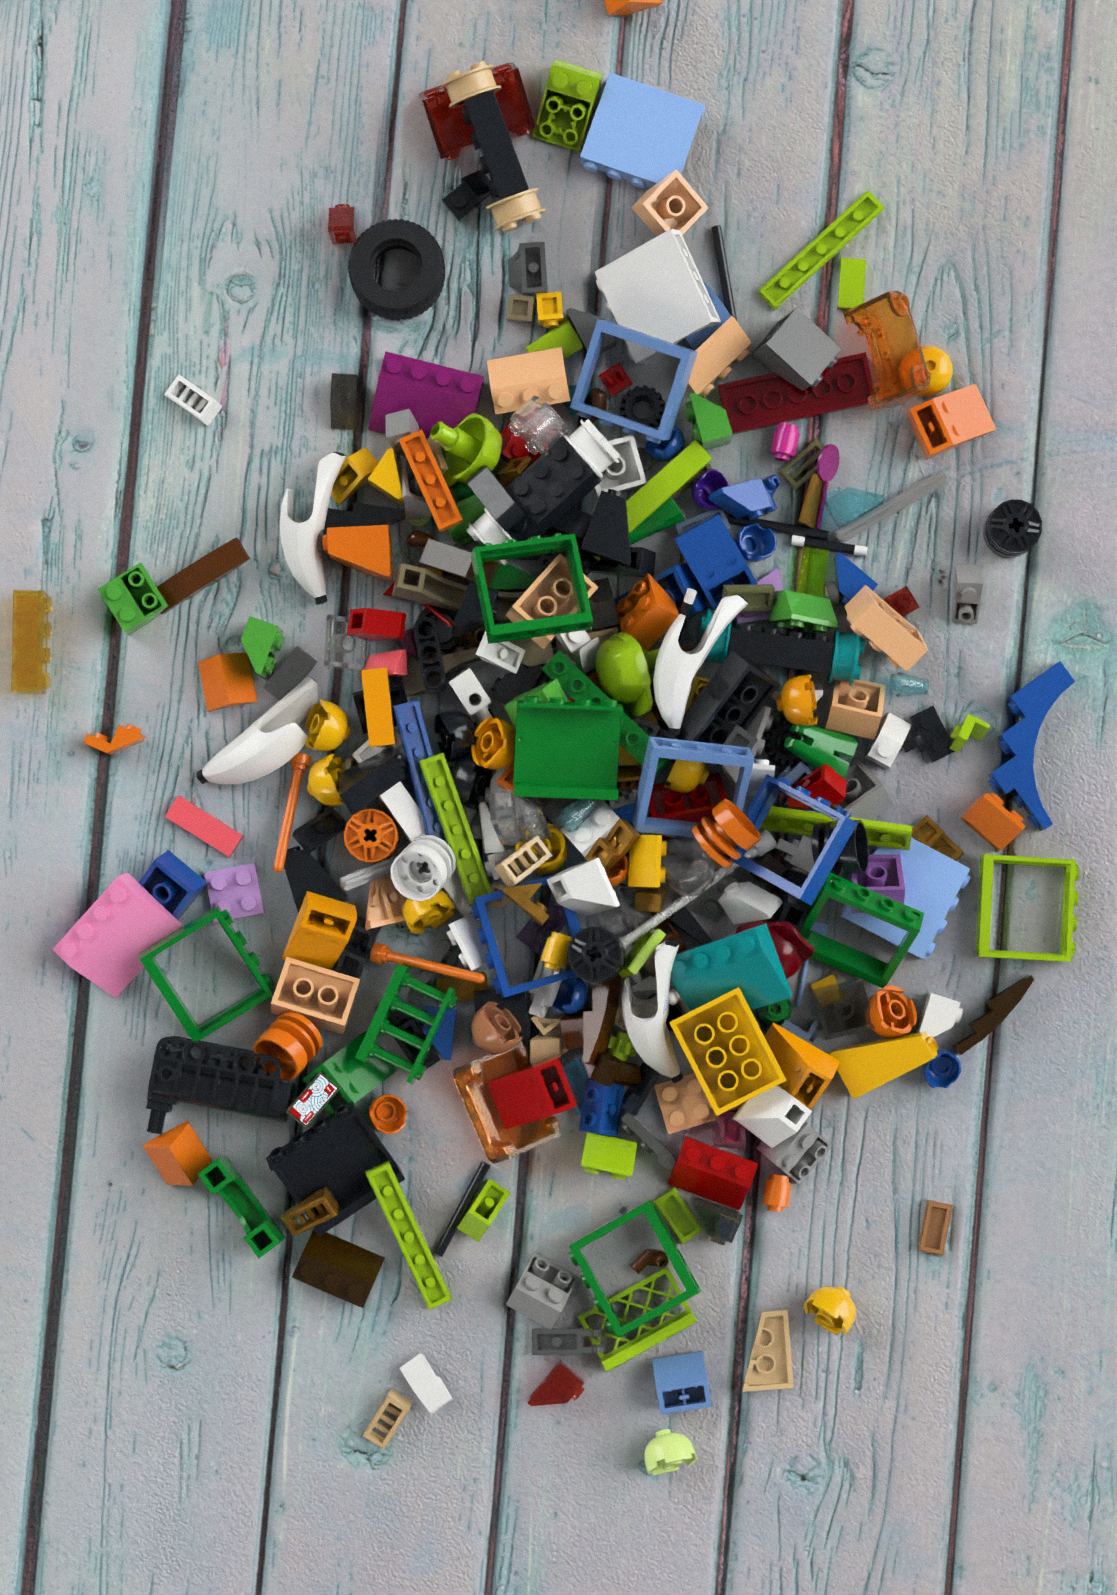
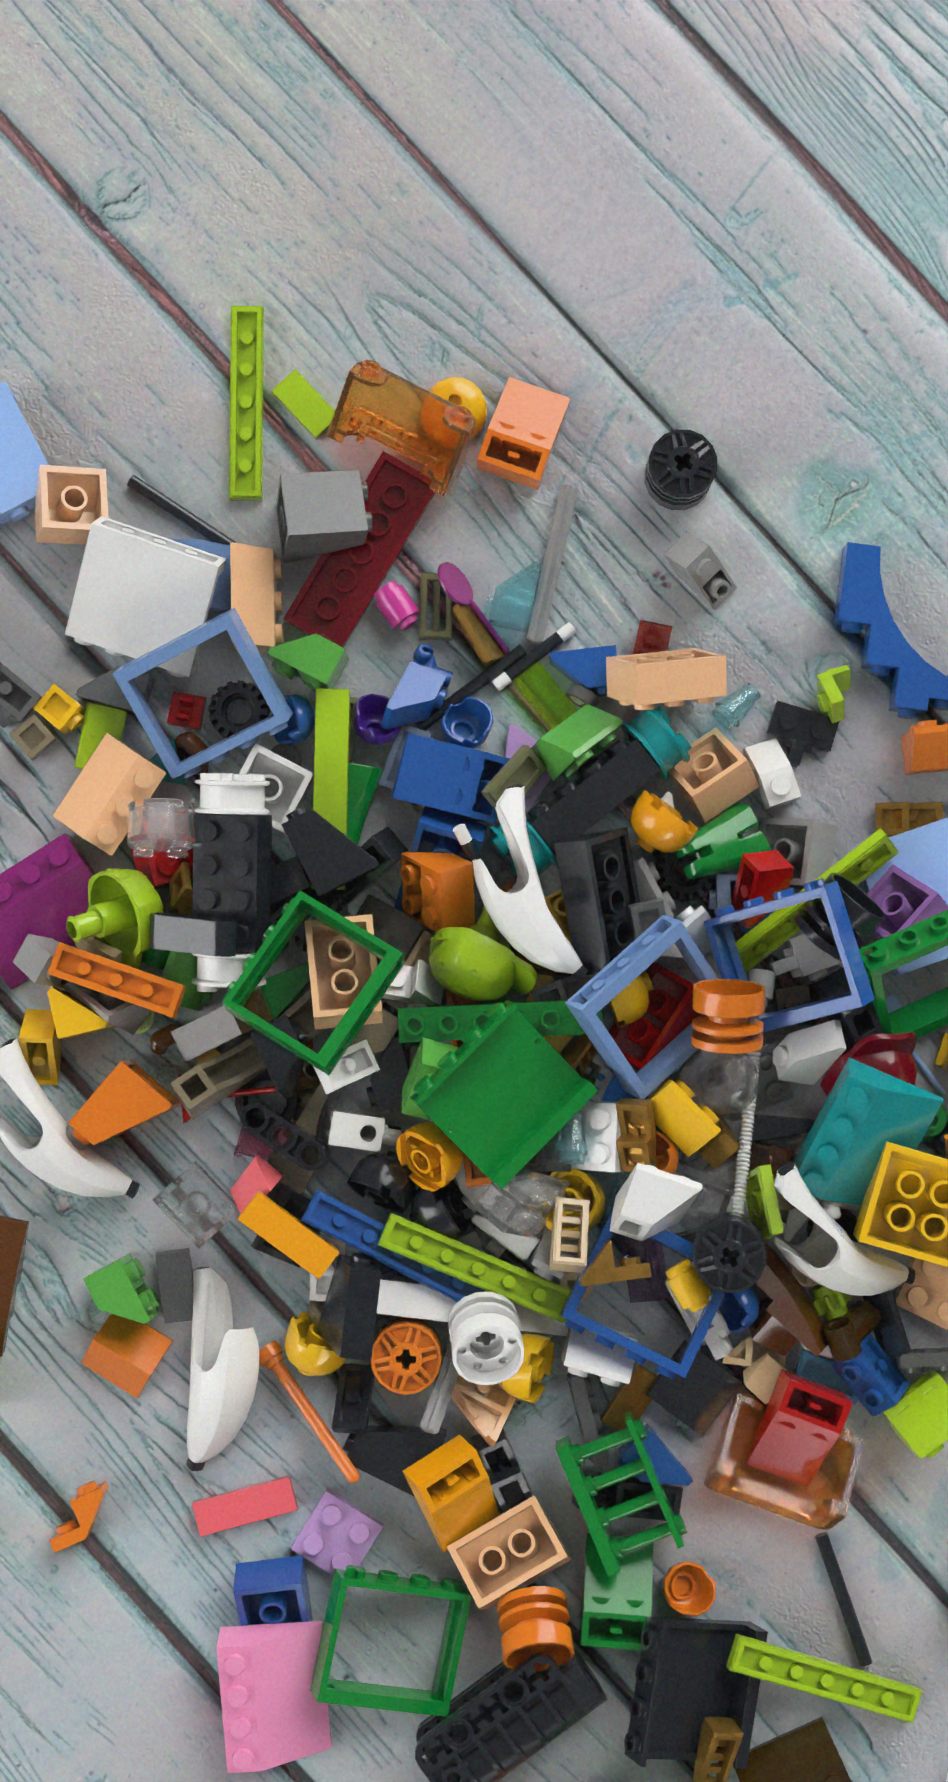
camera: 50 degrees left, 0 degrees up
(313, 1100) = (611, 1657): tile -> none
(326, 726) = (260, 1298): yellow cylinder -> none
(364, 515) = (90, 1074): black slope -> none
(376, 624) = (206, 1159): red slope -> none
(382, 954) = (529, 1448): orange piece -> none
(483, 1210) = (866, 1581): lime slope -> none
(495, 1029) = (704, 1409): nougat cylinder -> none

